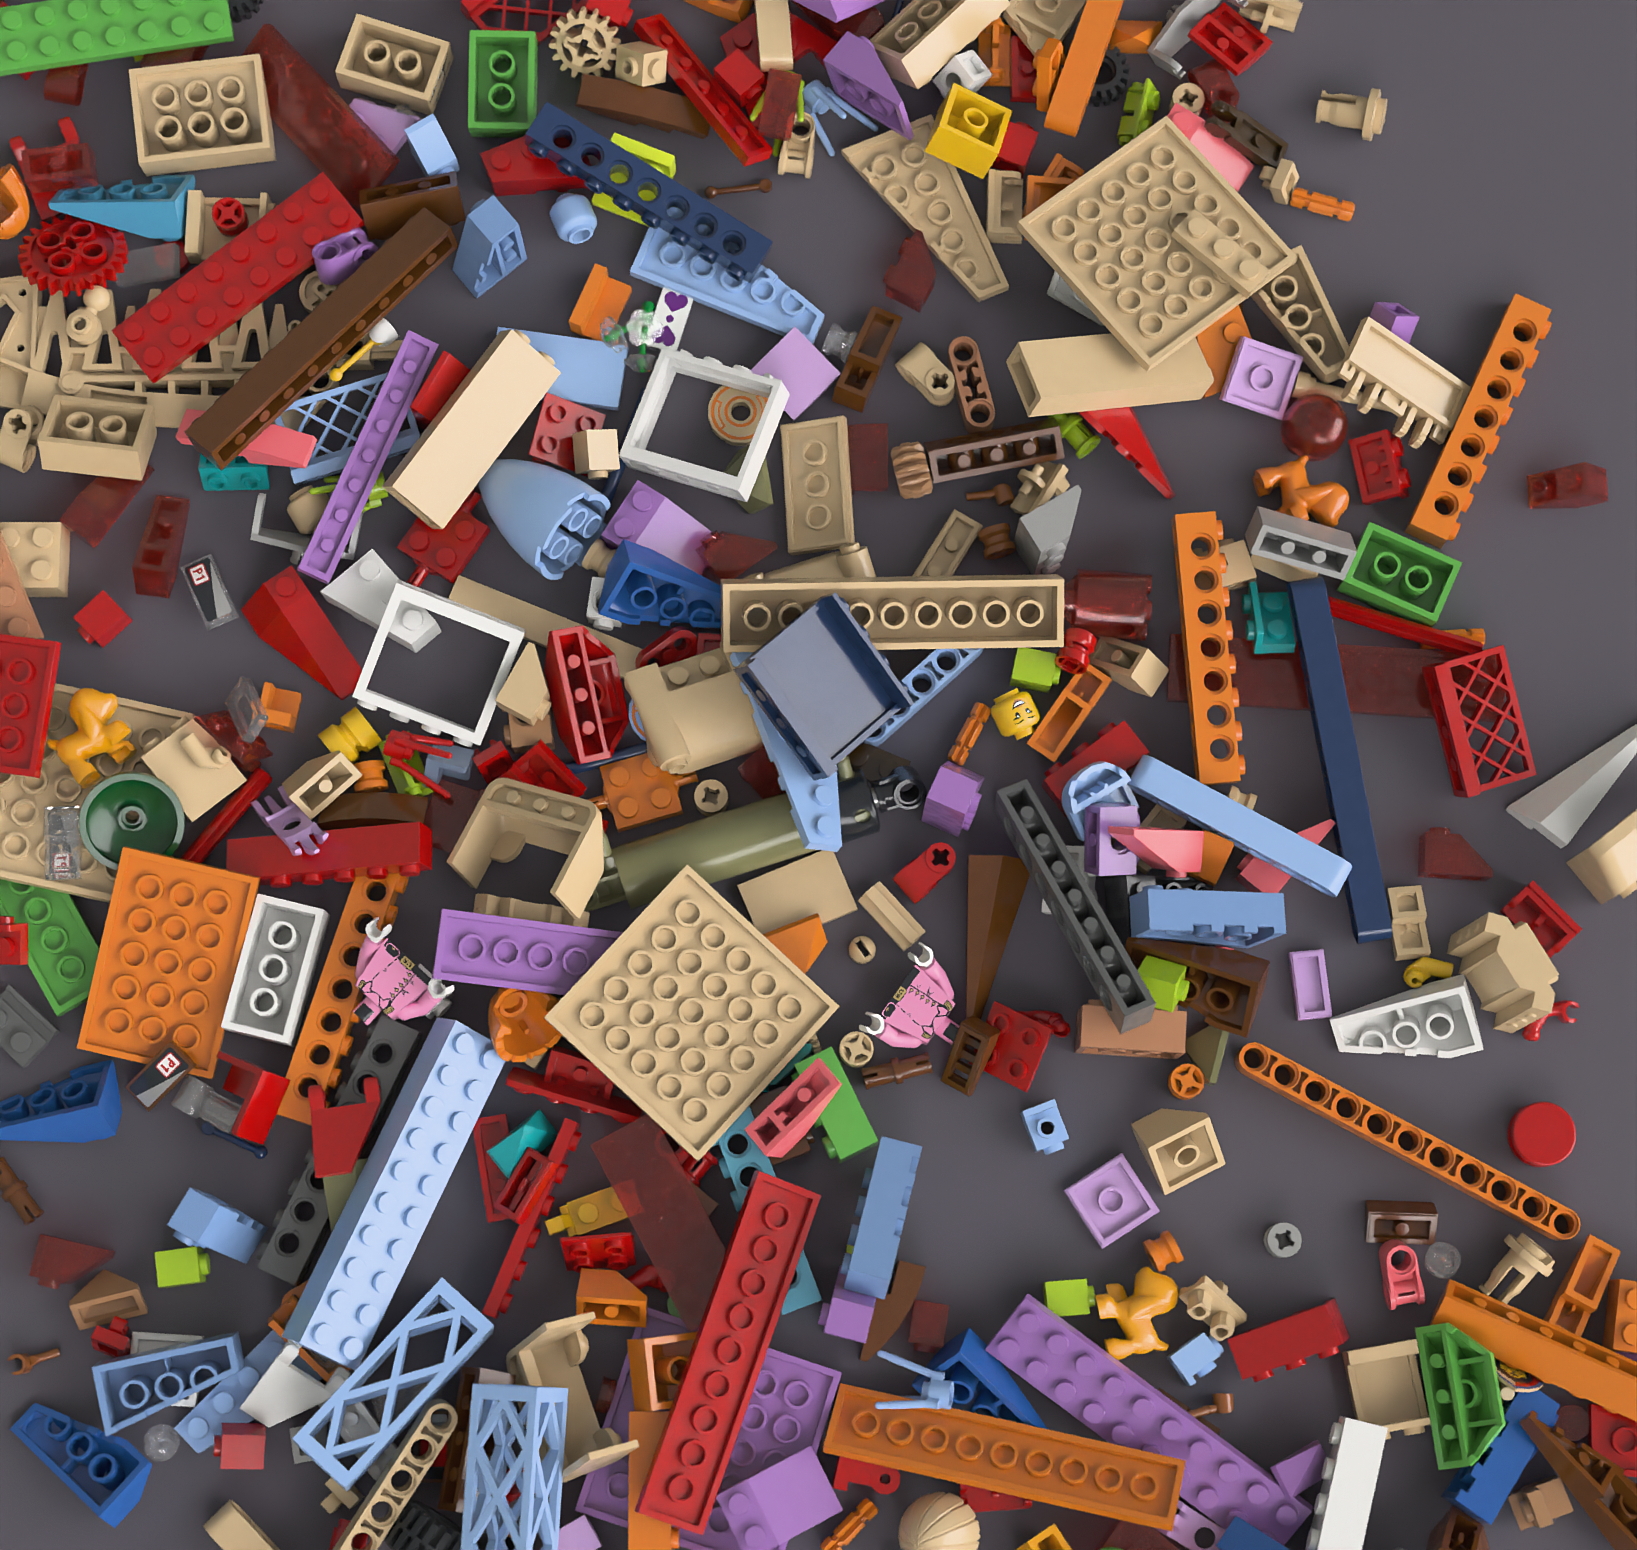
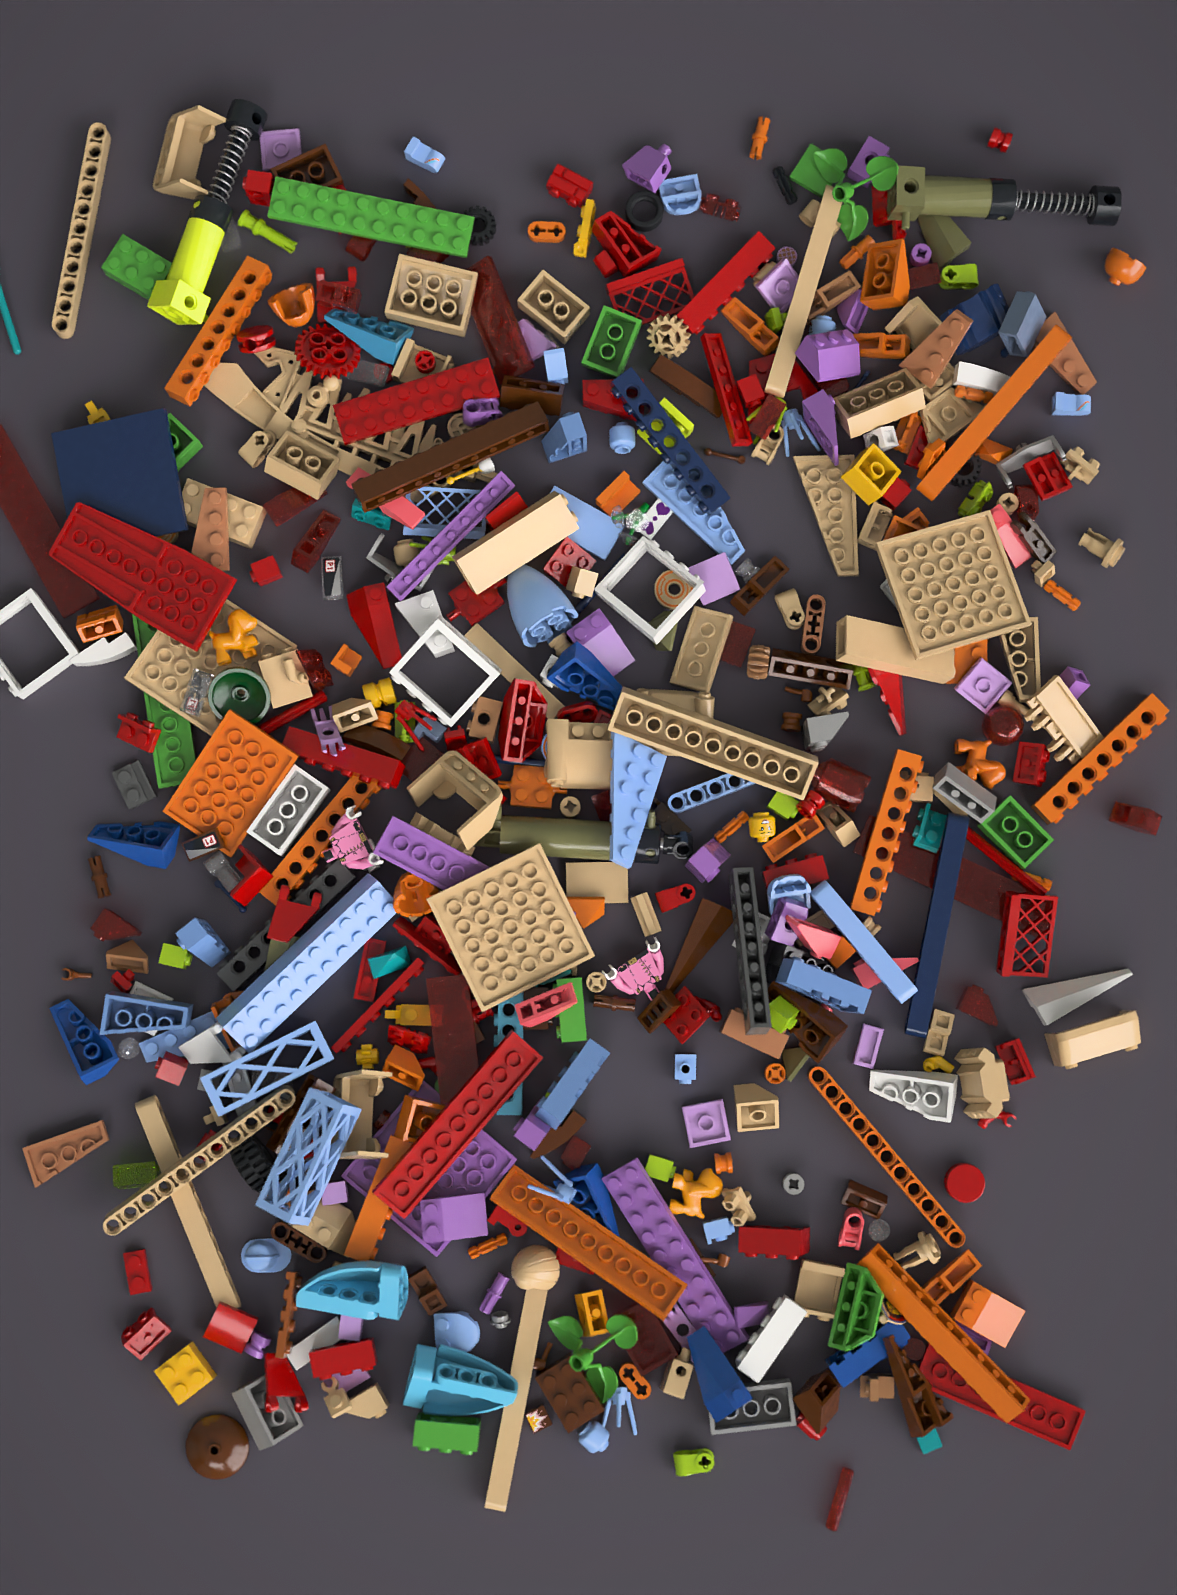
camera: 25 degrees right, 5 degrees up
(246, 710) = (327, 655): clear tile -> none
(525, 689) = (489, 705): tan slope -> none
(529, 1188) = (382, 989): red tile -> none
(544, 1304) = (367, 1056): none -> yellow gear
(641, 63) = (696, 360): tan brick -> none
(732, 553) = (637, 671): clear red slope -> none
(823, 685) = (656, 771): panel -> none
(855, 952) = (626, 925): tan hinge -> none
(913, 276) = (806, 547): clear red slope -> none
(949, 546) = (762, 715): tan tile -> none
(1220, 253) = (987, 606): tan plate -> none

